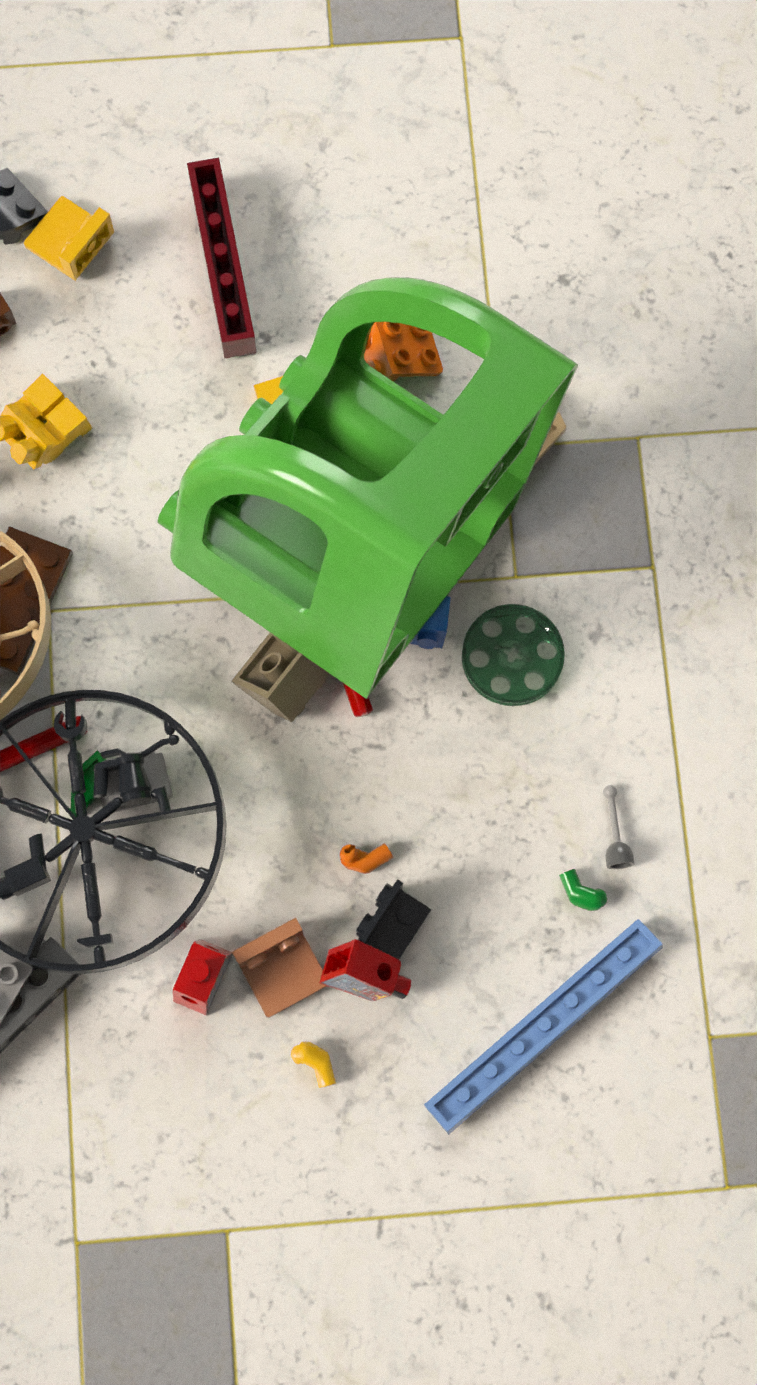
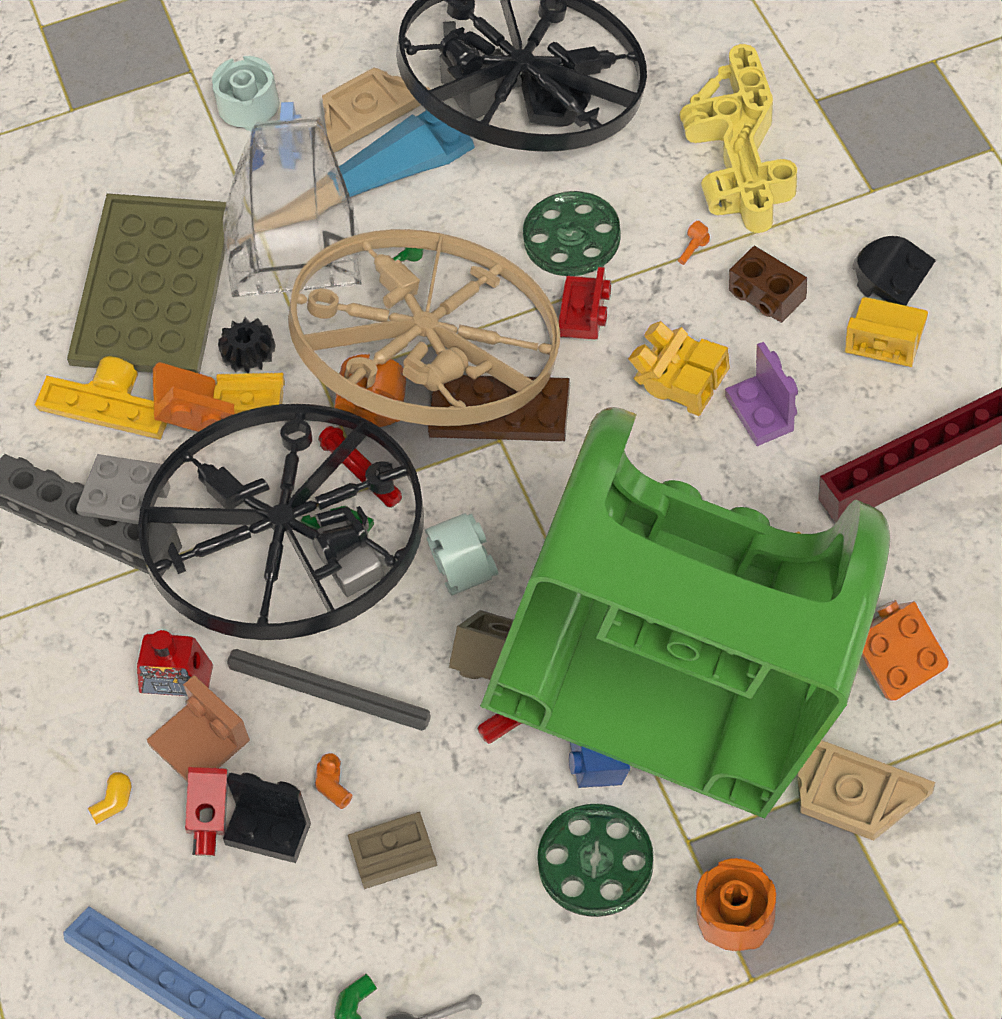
camera: 85 degrees right, 20 degrees down
(106, 362) = (766, 400): none -> medium lavender bracket
(179, 676) = (460, 554): none -> light aqua brick
(267, 838) = (329, 689): none -> dark grey axle
(452, 821) = (392, 850): none -> dark tan plate
(595, 572) = (735, 926): none -> orange brick

